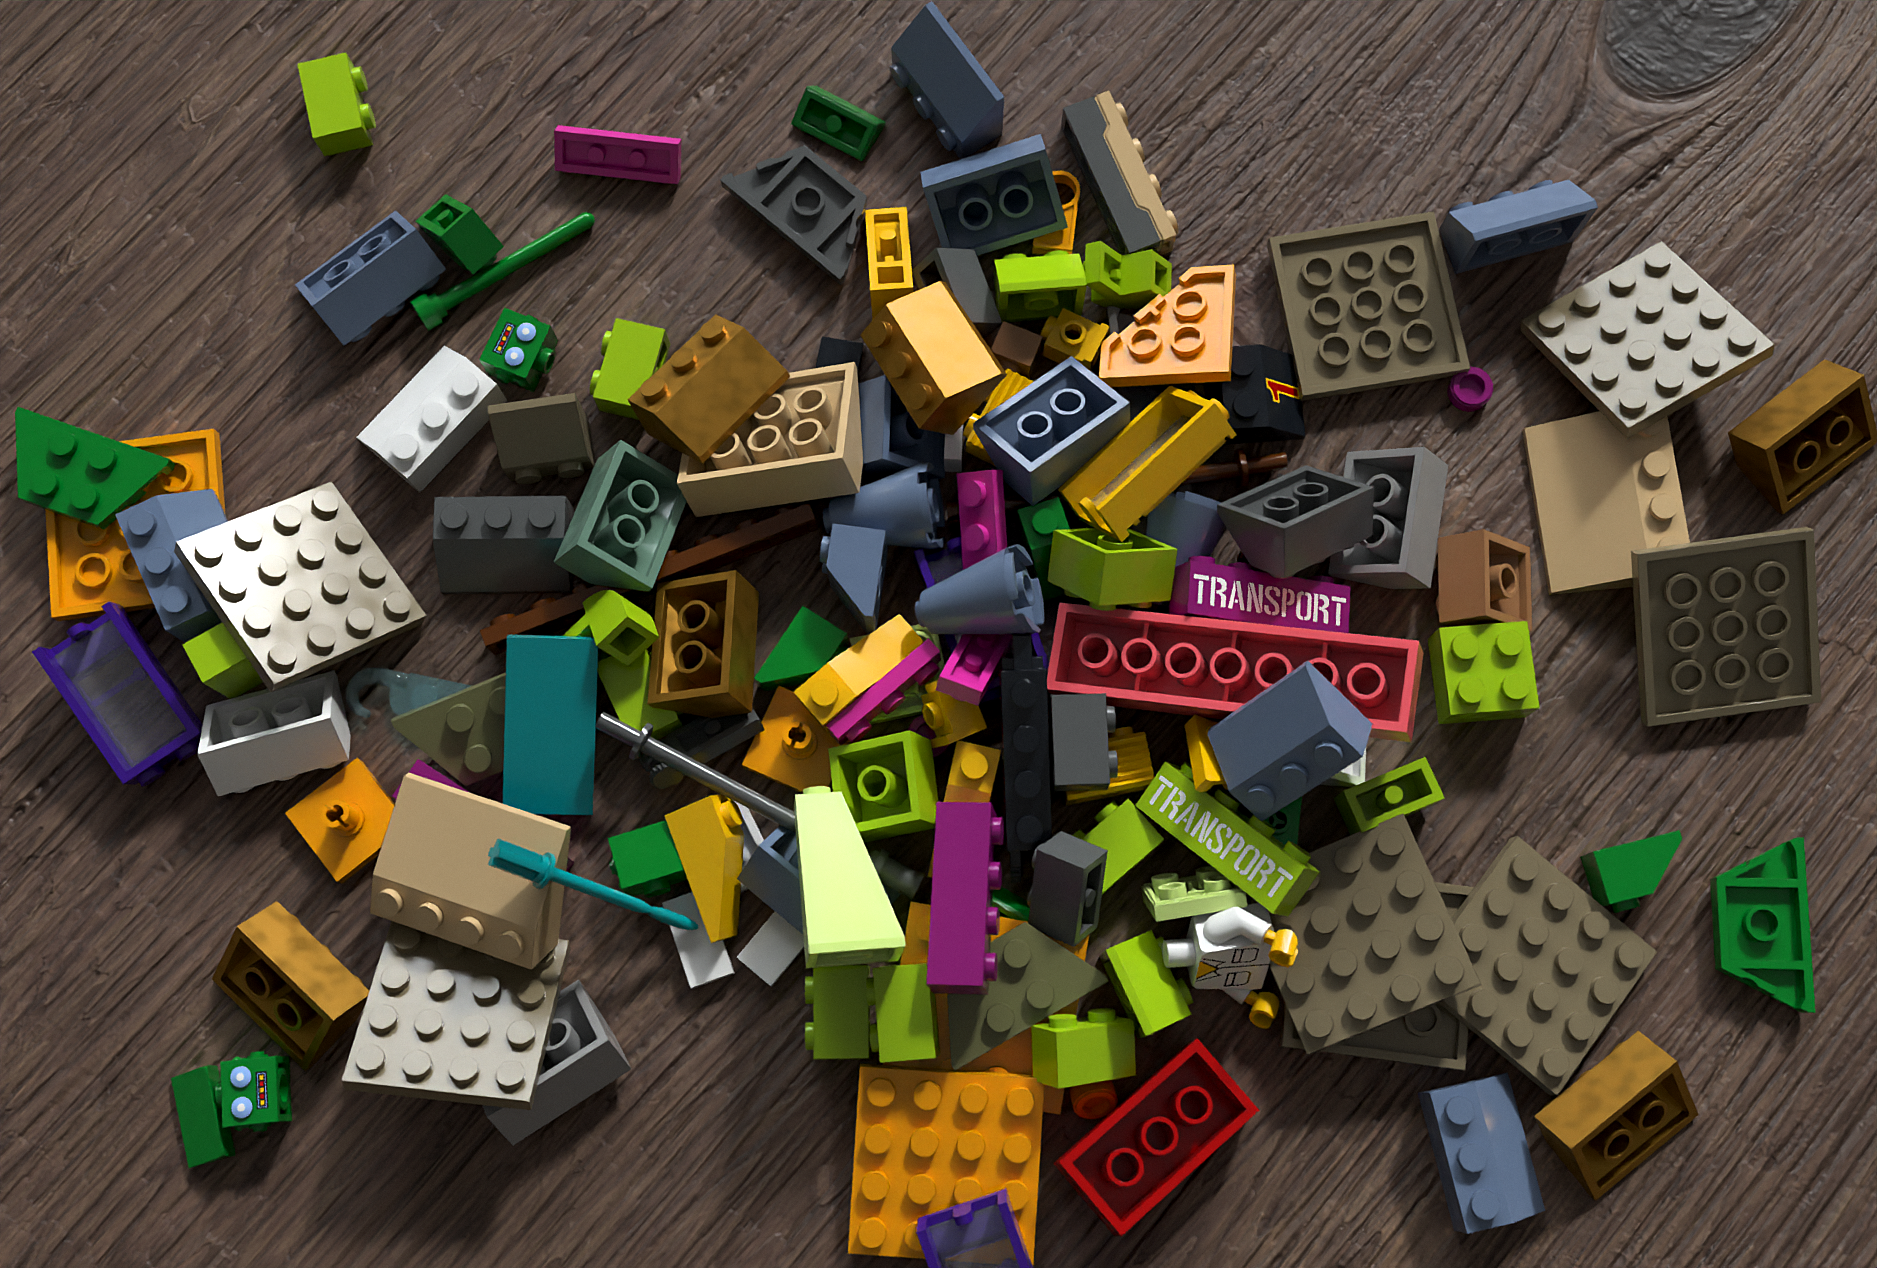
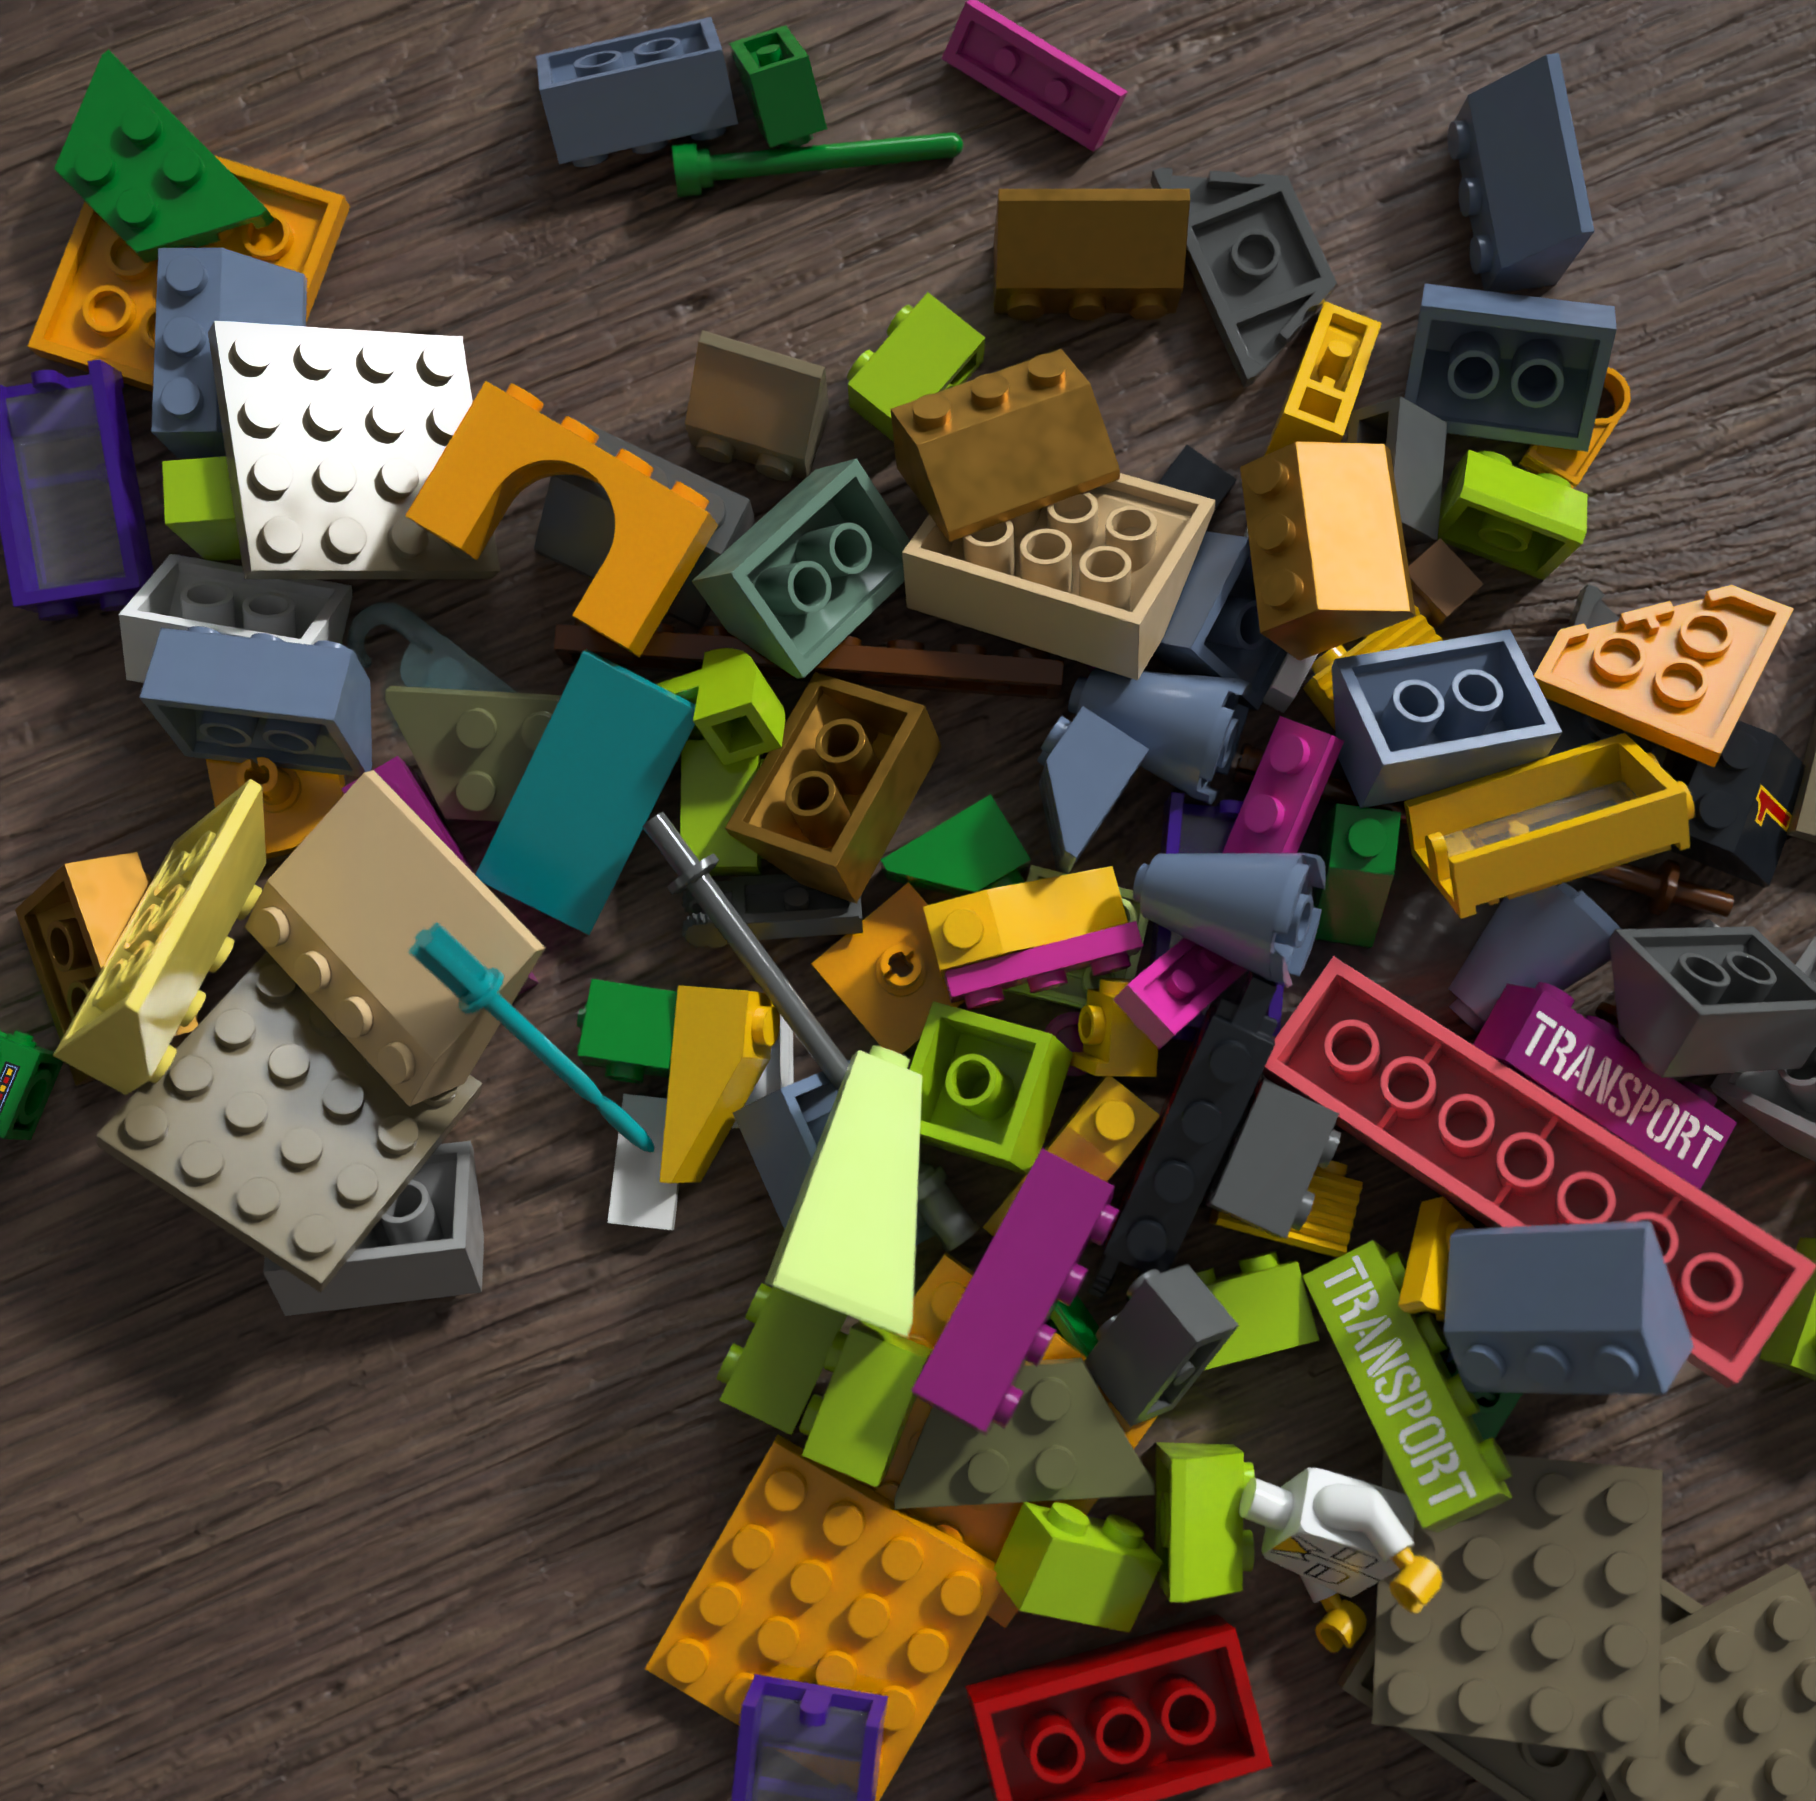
camera: 25 degrees right, 5 degrees up
(314, 762) = (261, 699): none -> sand blue slope
(330, 943) = (170, 947): none -> light yellow slope
(400, 531) = (511, 445): none -> light orange arch
(432, 417) = (629, 314): white slope -> none
(519, 350) = (783, 276): green head -> none
(704, 248) = (1089, 252): none -> pearl gold slope
(772, 949) = (735, 1224): white tile -> none
(837, 122) = (1343, 166): green slope -> none
(1084, 349) = (1499, 611): yellow brick -> none
(1093, 1099) = (1058, 1636): orange tile -> none
(1111, 571) = (1423, 948): lime brick -> none
(1117, 176) = (1688, 417): piece -> none
(1126, 279) = (1634, 560): lime brick -> none
(1199, 894) = (1319, 1433): yellowish green tile -> none
(1389, 795) = (1649, 1433): lime brick -> none

